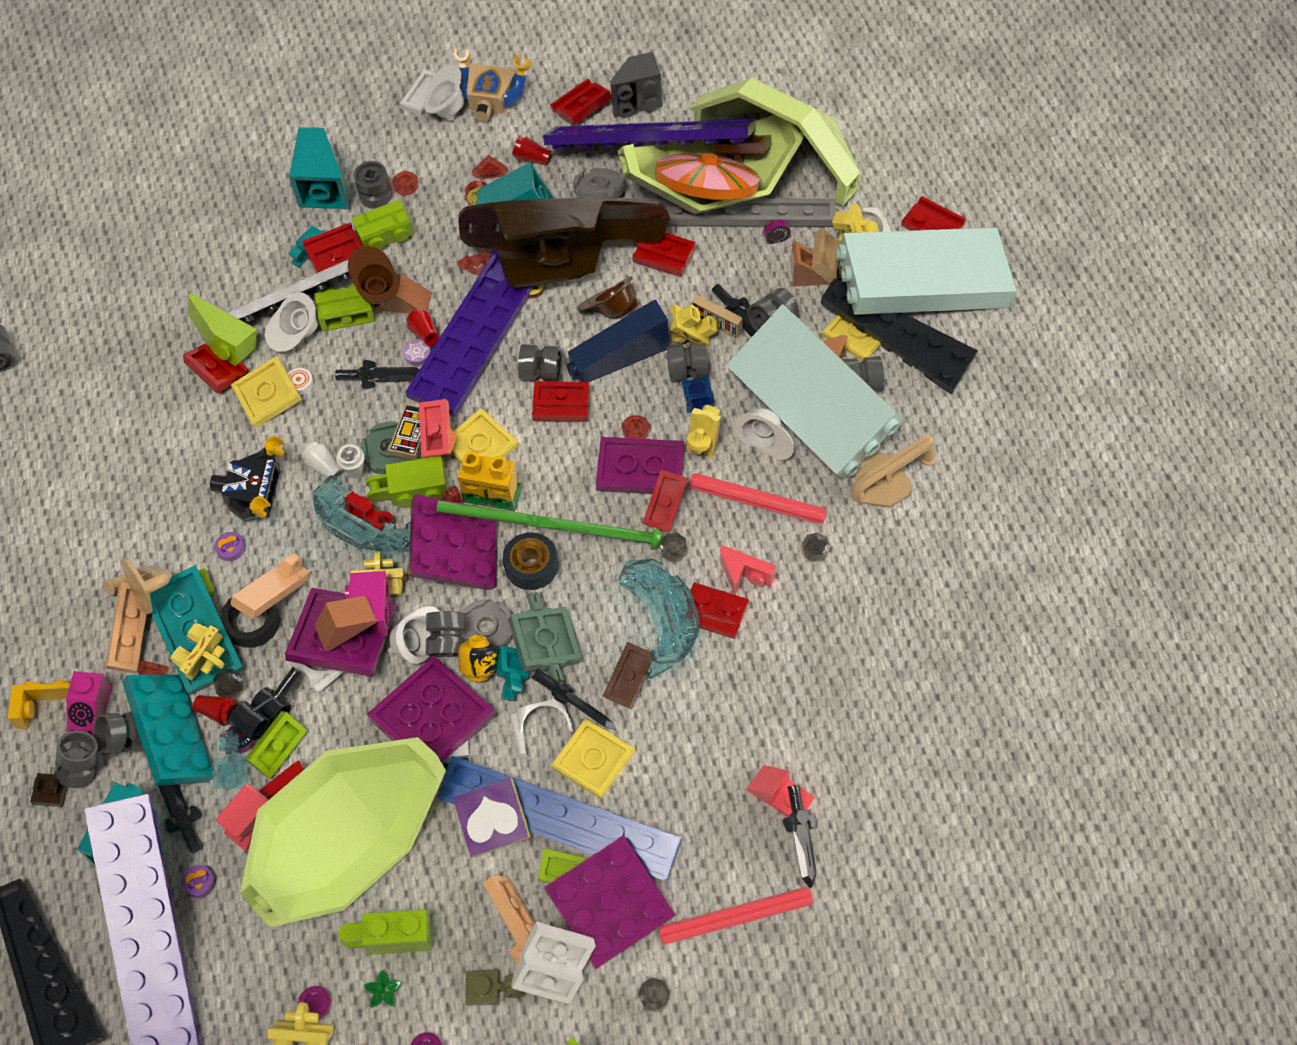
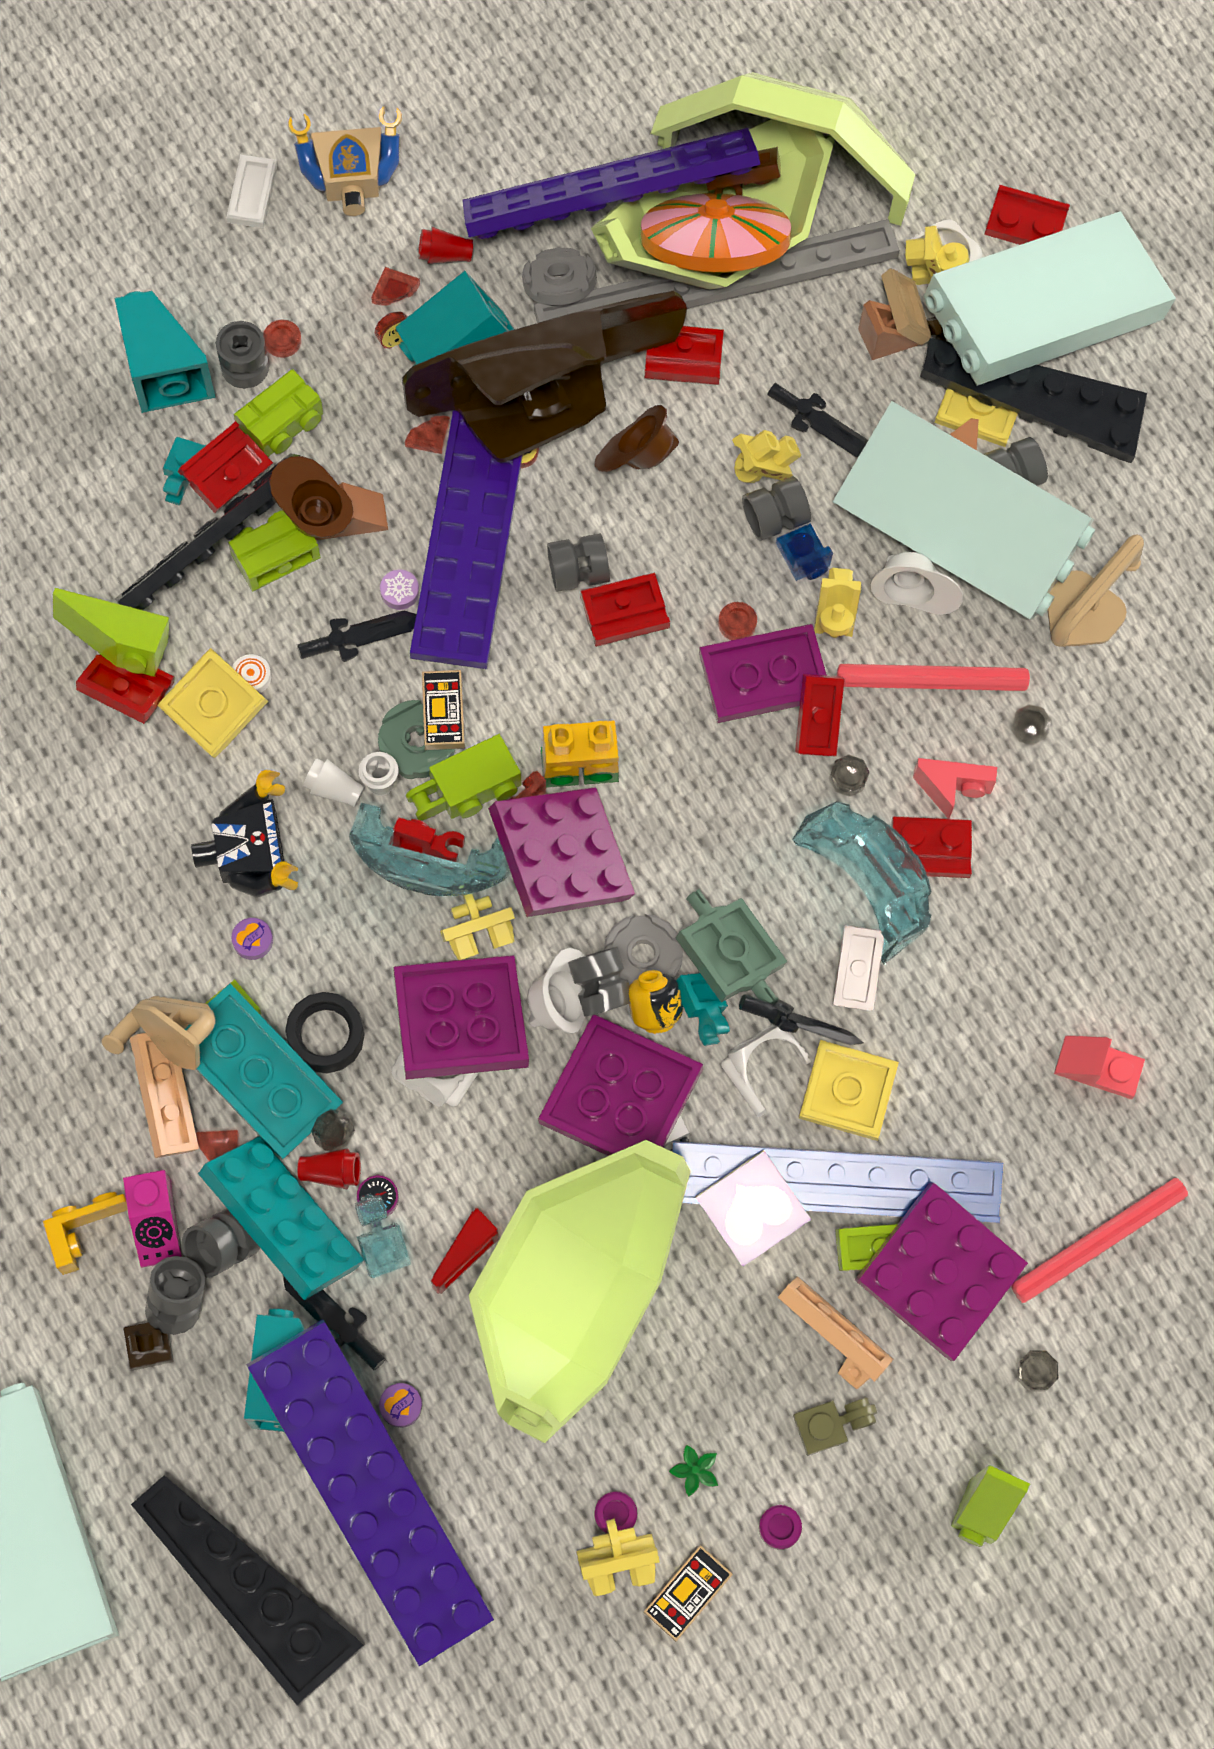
camera: 25 degrees left, 10 degrees up
(202, 656) = (286, 1081): light yellow hips -> none
(240, 815) = (437, 1304): coral slope -> none
(265, 707) = (399, 1149): black beam -> none
(271, 587) = (342, 983): light nougat hinge -> none
(275, 744) = (431, 1194): lime plate -> none
(291, 322) = (211, 594): white piece -> none
(343, 620) = (472, 1007): nougat slope -> none
(377, 590) = (487, 964): dark pink slope -> none
(389, 932) = (681, 1396): lime brick -> none
(422, 325) = (395, 550): red cone -> none
(435, 430) = (481, 699): coral slope -> none
(444, 93) = (289, 185): white piece -> none
(482, 435) = (534, 696): light yellow tile -> none
(530, 575) = (674, 826): wheel -> none
(551, 523) = (818, 770): bright green bar -> none
(552, 963) = (905, 1372): white slope -> none
(581, 101) = (485, 152): red plate -> none
(621, 344) = (680, 508): dark blue slope -> none
(636, 86) = (565, 113): dark grey slope -> none
(726, 320) = (808, 435): tile -> none
(764, 308) = (864, 406): dark grey wheel -> none
(776, 231) = (826, 286): tile -> none
(802, 835) = (1138, 1094): sword -> none

